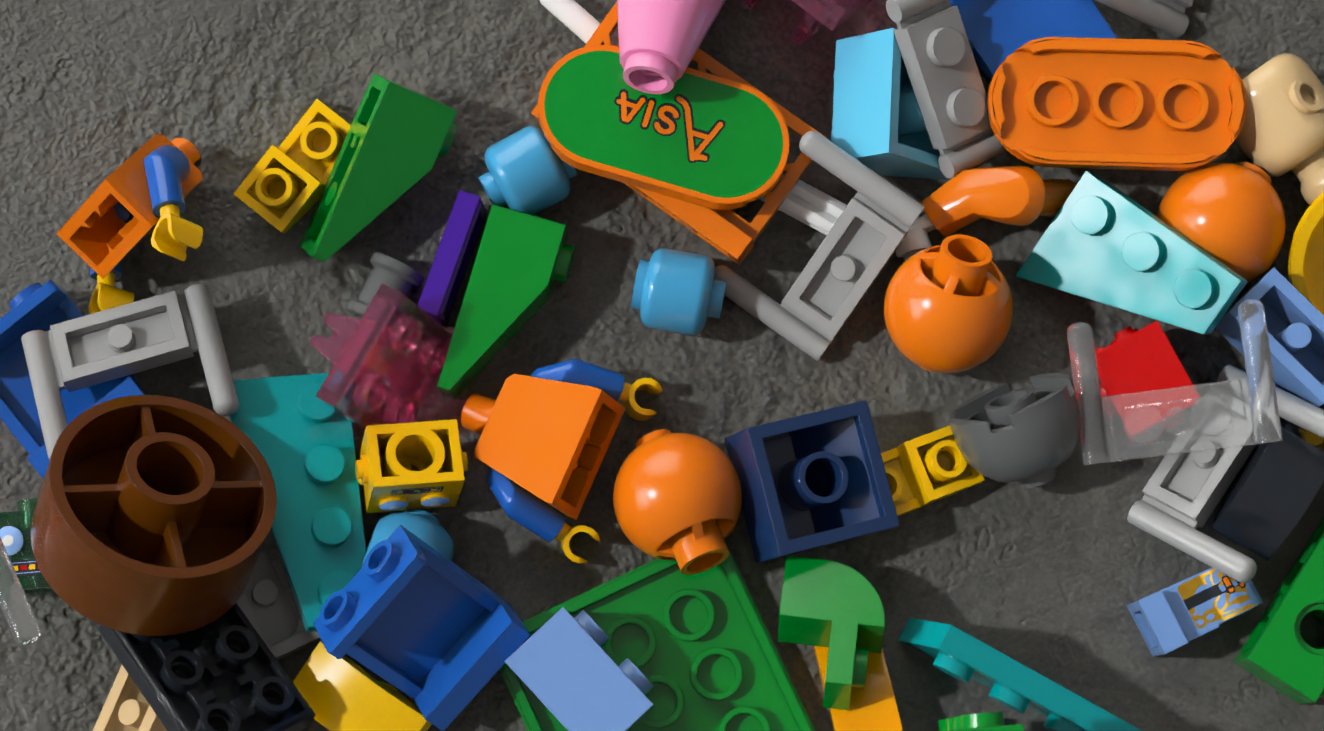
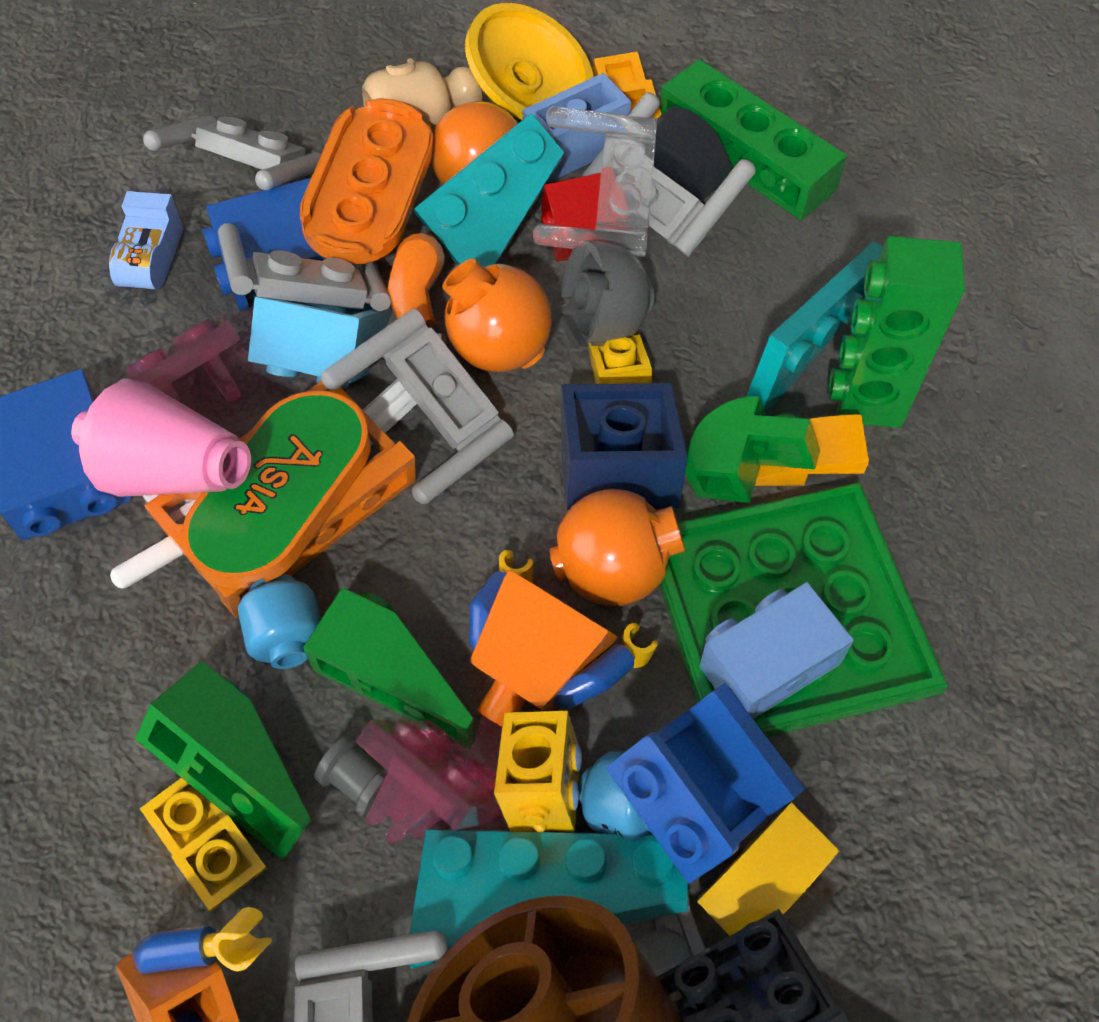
camera: 80 degrees left, 20 degrees down
(452, 257) = (332, 697): dark purple tile -> none
(677, 291) = (427, 518): dark azure head -> none
(1191, 609) = (761, 222): medium blue leg -> none

